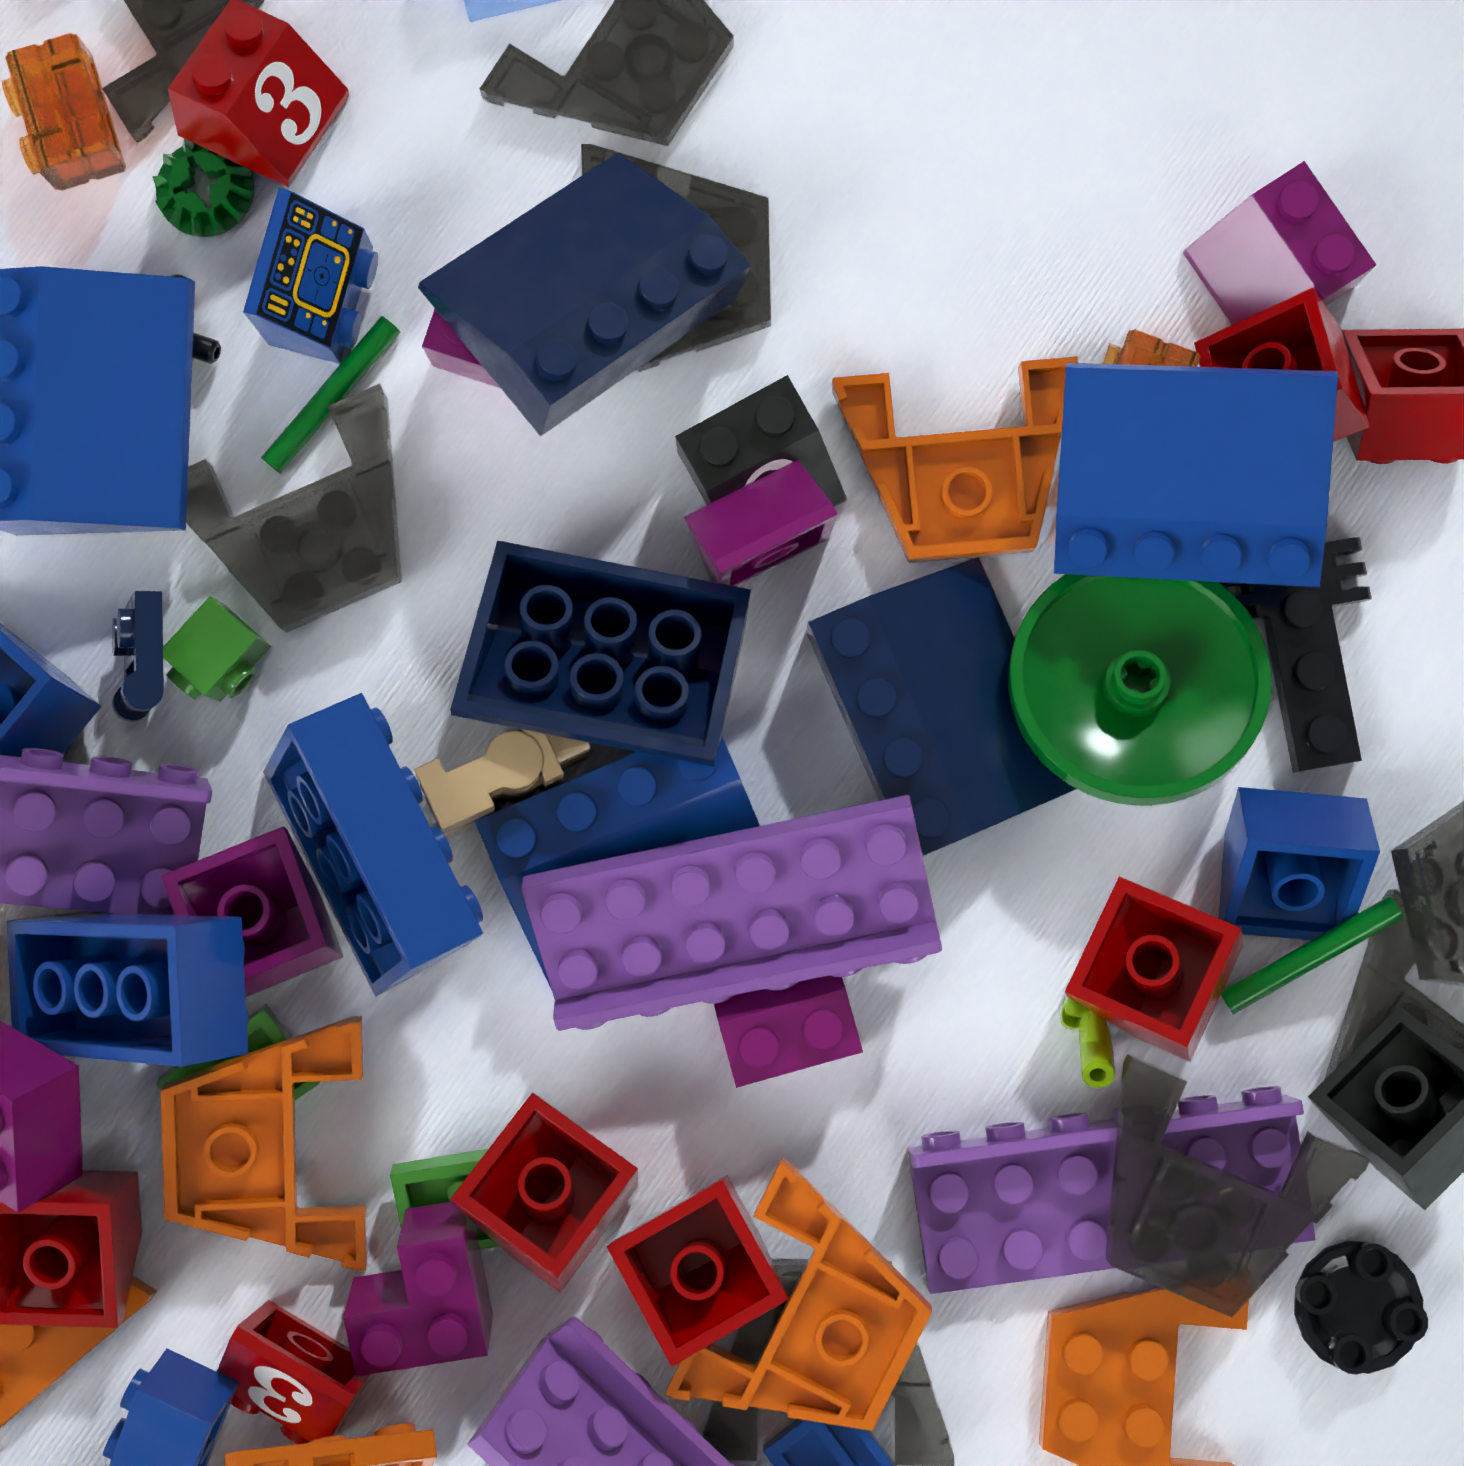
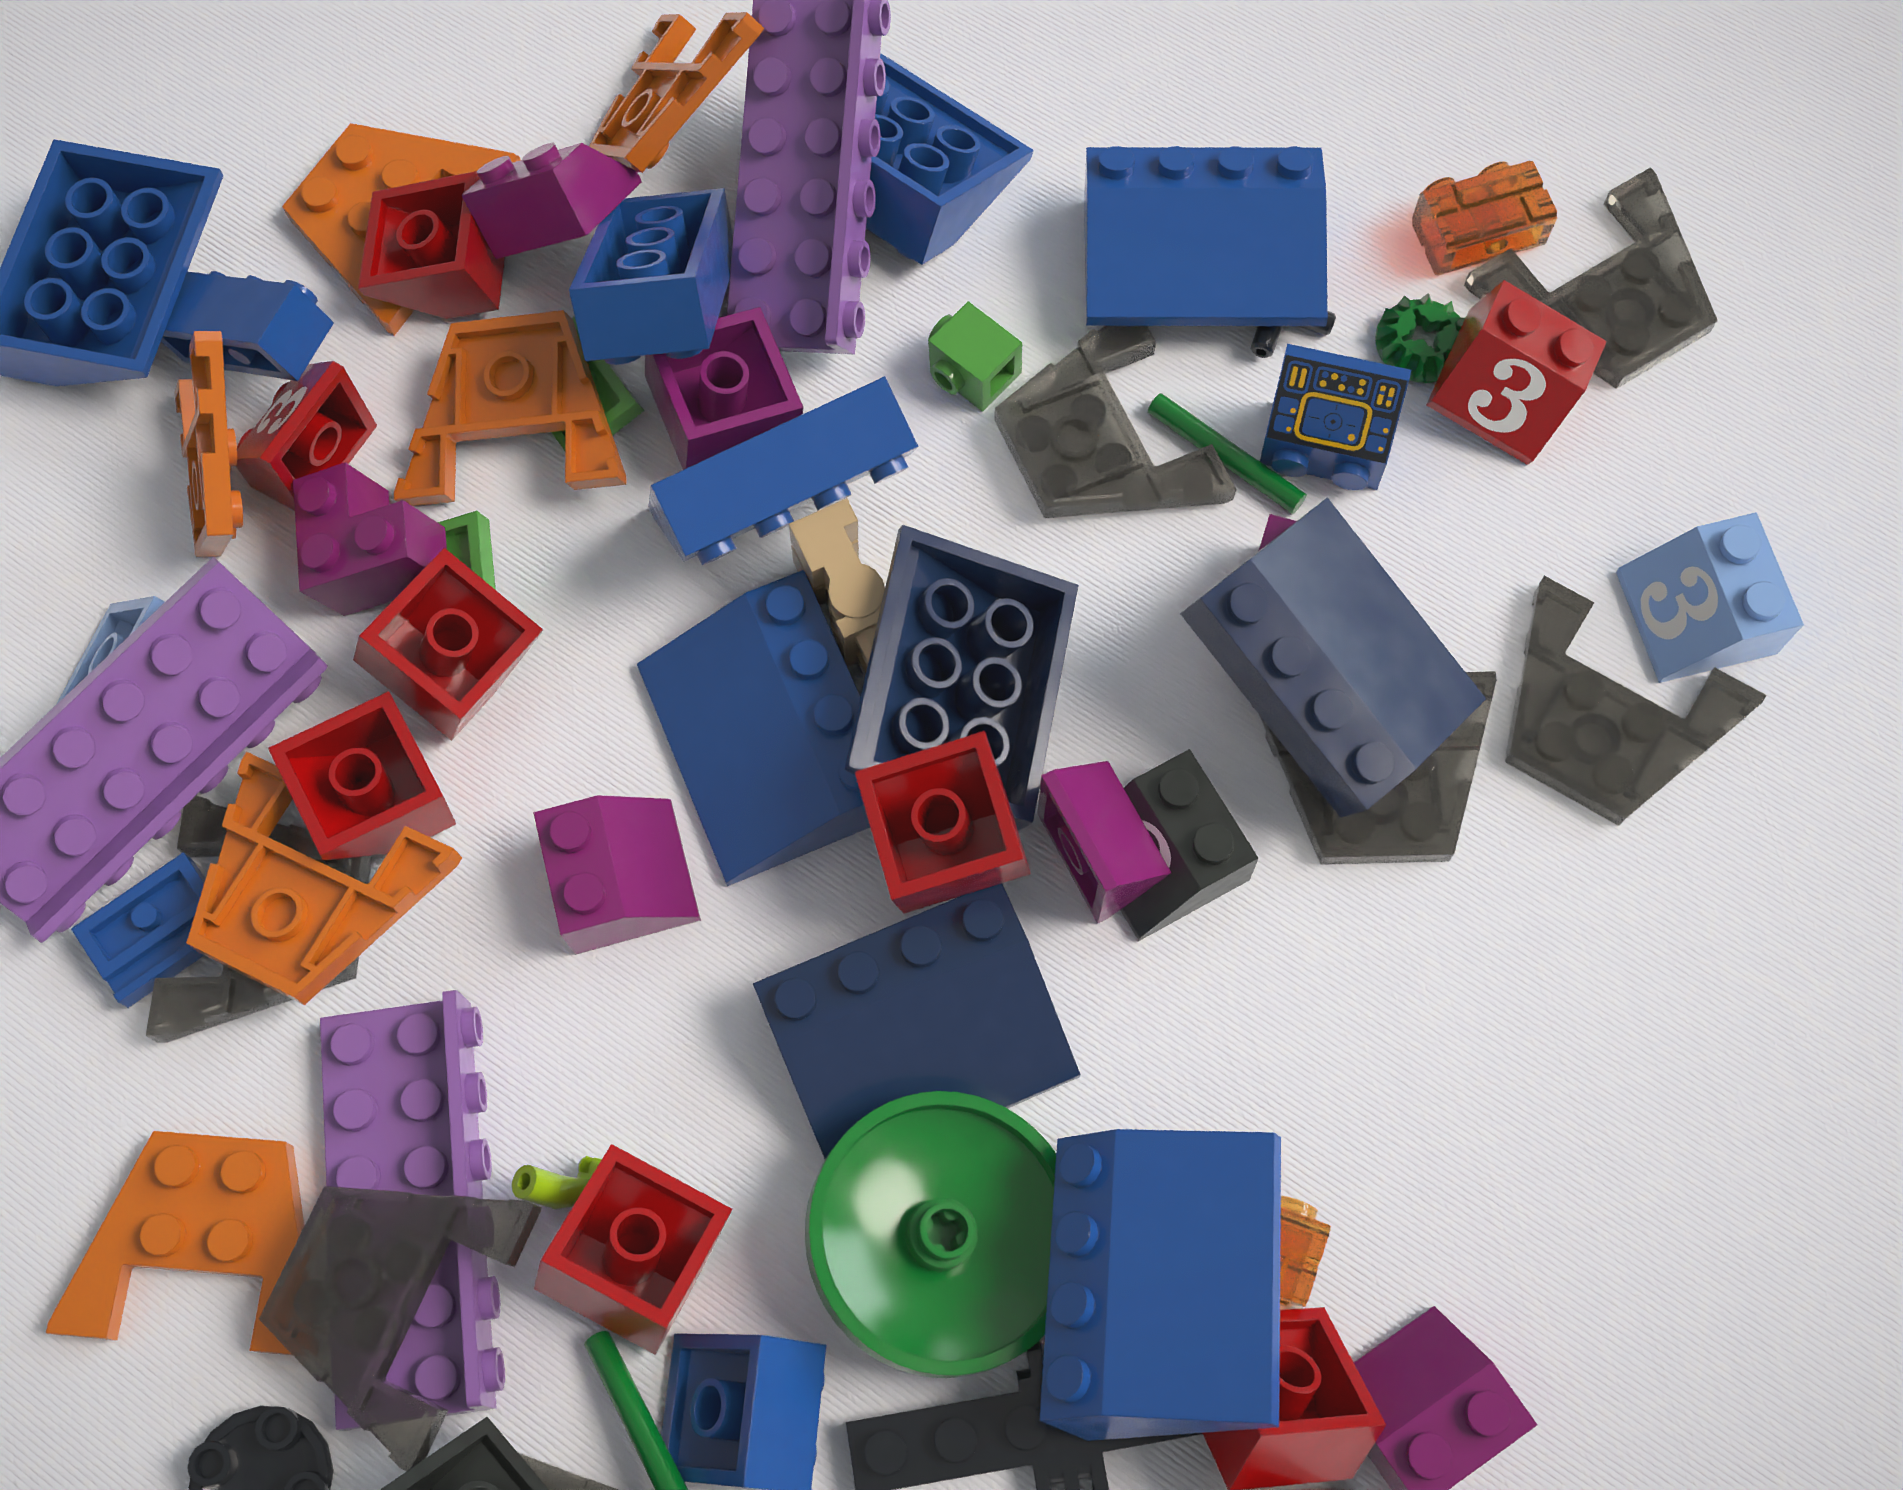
camera: 90 degrees right, 15 degrees down
(139, 638) = (983, 282): dark blue plate -> none
(733, 914) = (705, 817): medium lavender bracket -> none
(769, 670) = (942, 823): none -> red slope
(966, 488) = (1150, 1042): orange wing -> none

